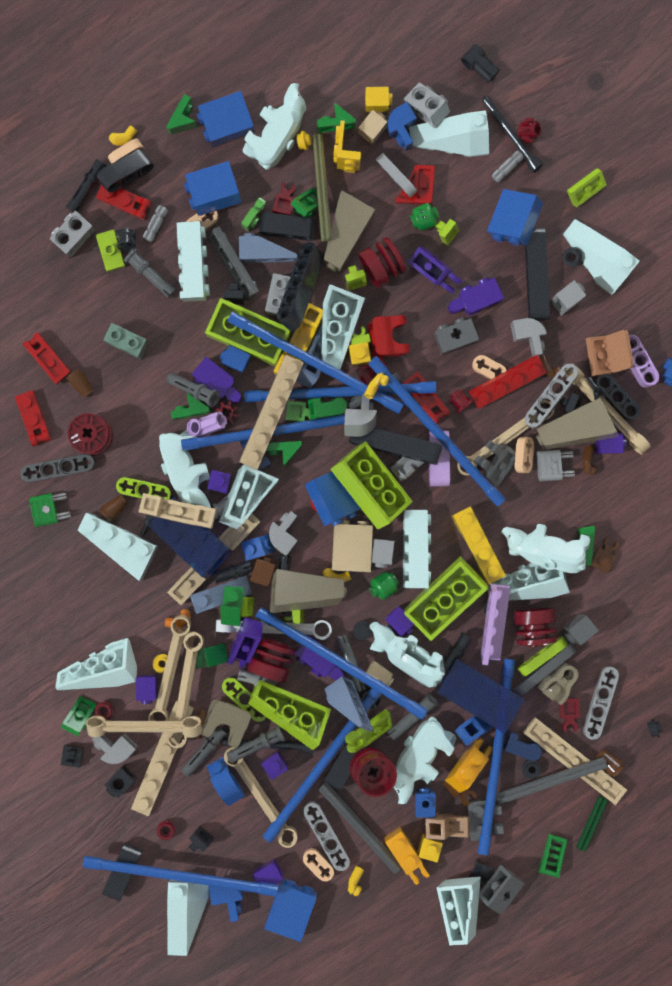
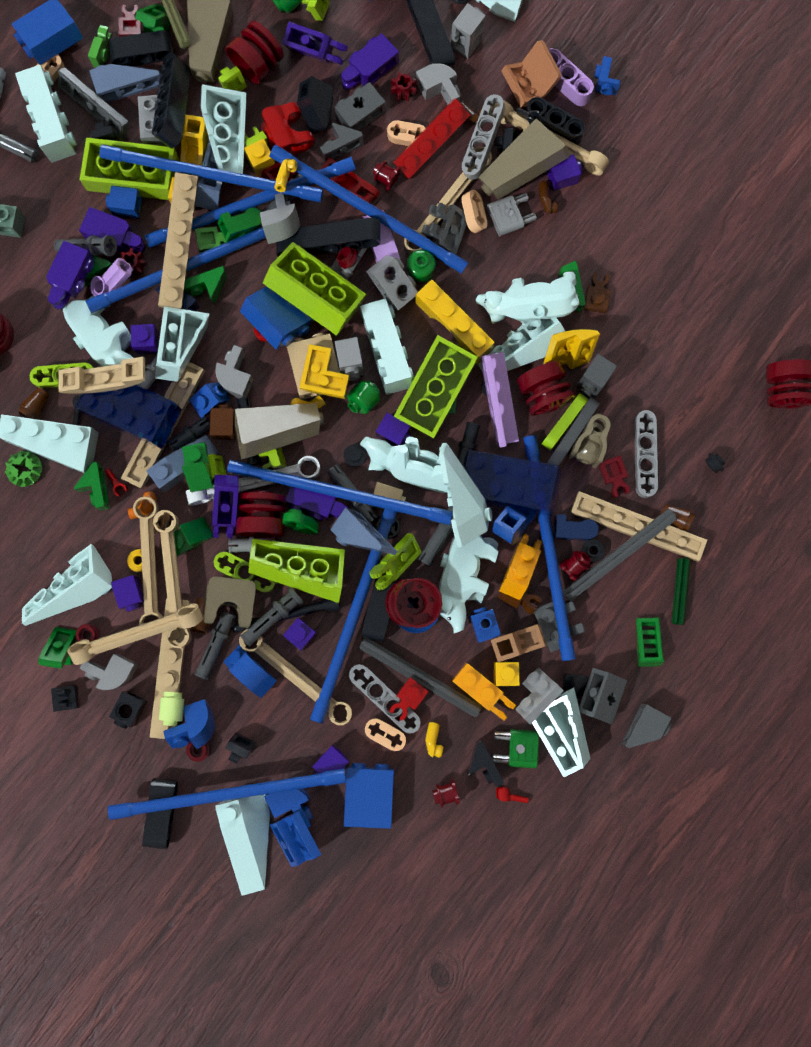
camera: 15 degrees left, 5 degrees down
(91, 567) = (26, 478): none -> bright green gear
(145, 587) = (94, 480): none -> green slope
(155, 794) = (171, 708): none -> yellowish green brick
(161, 592) = (115, 482): none -> red hand
(171, 816) = (197, 729): none -> blue brick
(173, 411) = (68, 273): none -> dark purple hinge
(223, 926) = (295, 839): none -> blue slope
(301, 674) = (300, 523): none -> green plate
(348, 841) = (410, 696): none -> red plate
(351, 562) = (317, 377): none -> yellow plate
(352, 927) = (446, 794): none -> dark red brick
(388, 909) = (480, 759): none -> black slope
(397, 941) = (503, 794): none -> red hand
(406, 466) = (347, 257): none -> dark red plate
(419, 321) = (315, 102): none -> black slope
(423, 909) = (522, 748): none -> green piece
(436, 360) = (346, 141): none -> dark grey slope
(438, 502) = (389, 285): none -> light grey brick
(440, 704) = (468, 503): none -> light aqua wedge
(453, 876) = (542, 694): none -> light grey plate
(465, 489) = (421, 266): none -> green head
(502, 323) = (405, 92): none -> dark red gear
(514, 777) = (576, 564): none -> dark red brick
(528, 924) = (646, 727): none -> dark grey slope
(568, 600) = (572, 347): none -> yellow slope

